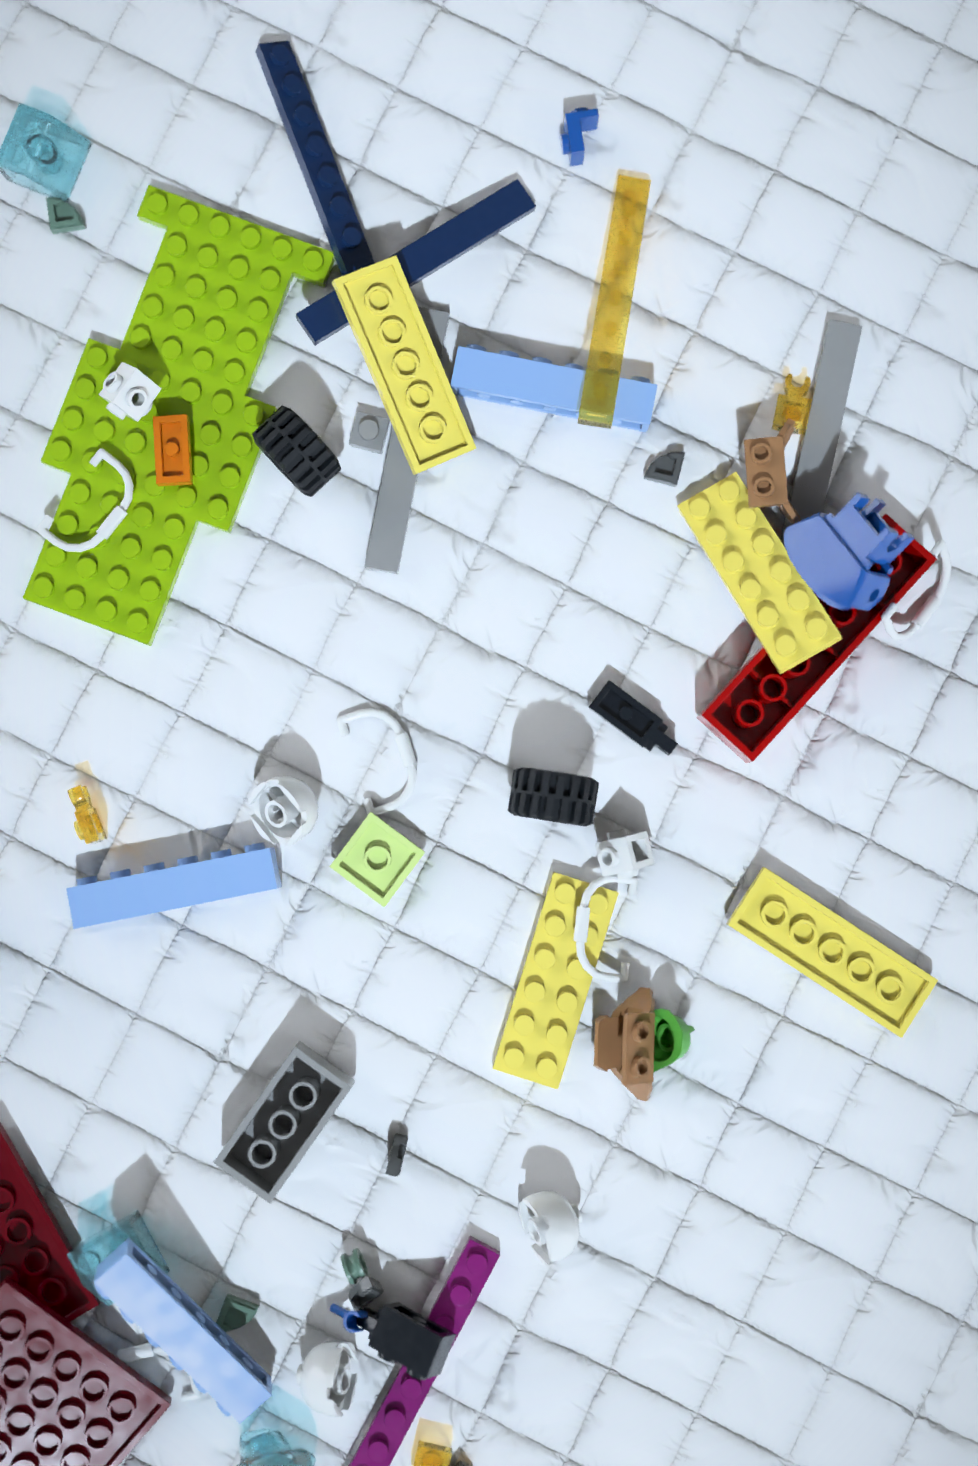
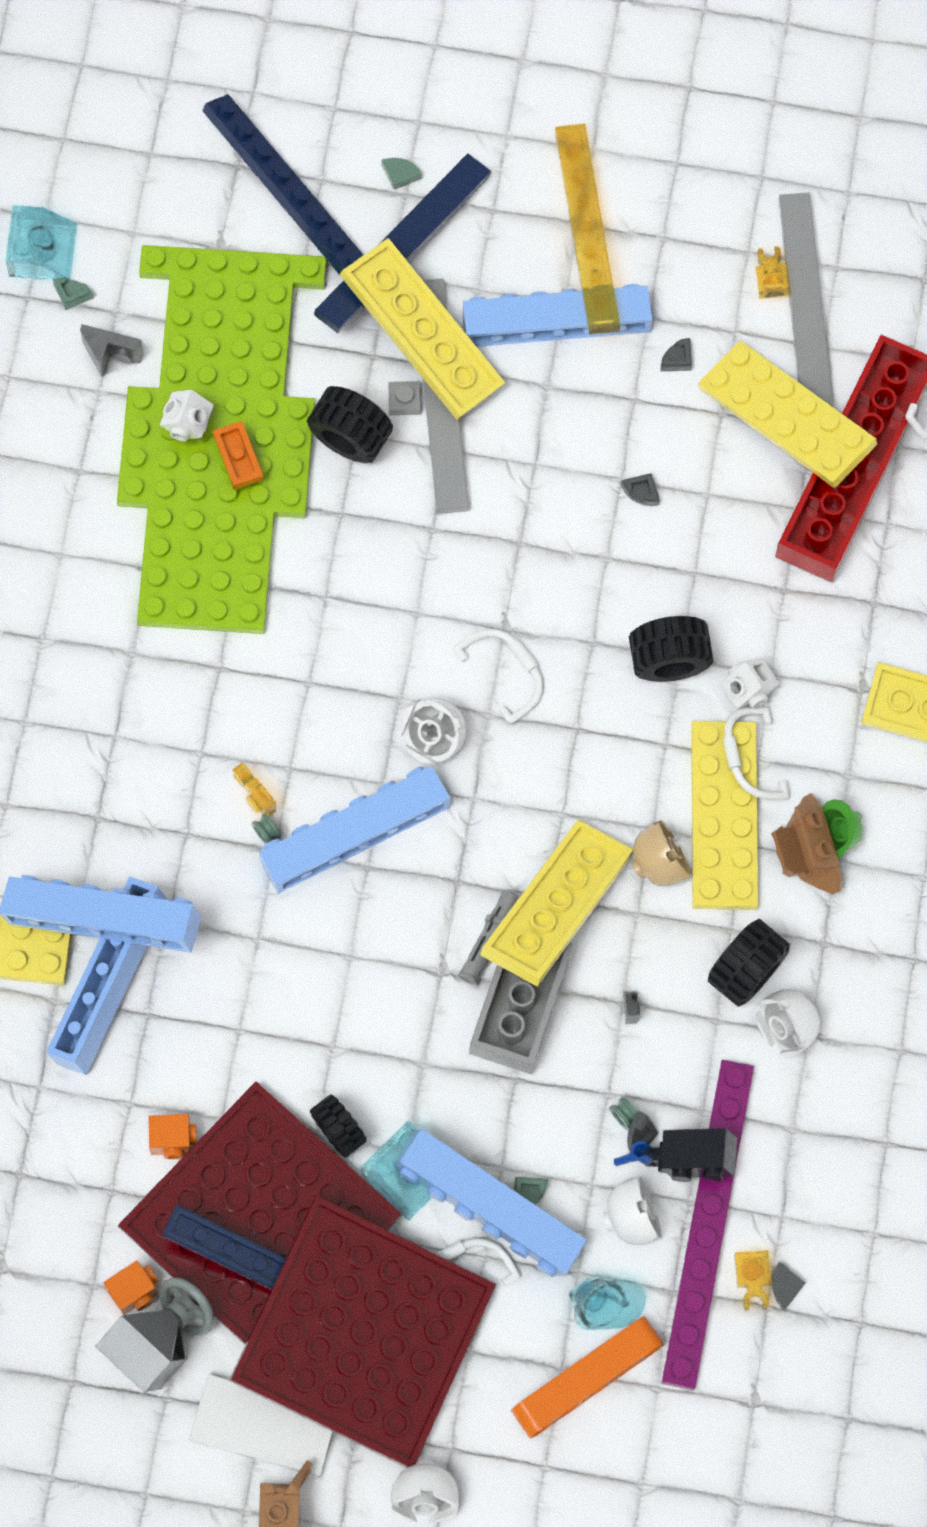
camera: 20 degrees left, 15 degrees down
(60, 1199) = (338, 1125): none -> black tyre
(74, 288) = (104, 343): none -> flat silver slope
(86, 860) = (266, 829): none -> sand green bush
(110, 522) = (199, 533): white piece -> none
(286, 1030) = (476, 963): none -> light grey pin
(347, 1040) = (557, 903): none -> light yellow plate
(377, 859) = (530, 754): yellowish green plate -> none
(442, 179) = (400, 171): none -> sand green tile
(473, 1011) = (659, 856): none -> tan cylinder
(525, 1159) = (748, 962): none -> black tyre
(571, 140) = (505, 107): blue bracket -> none
(582, 604) = (641, 490): none -> dark grey tile
(632, 718) = (719, 572): black hinge -> none
(768, 473) = (769, 333): medium nougat piece -> none
(839, 550) = (849, 371): piece -> none

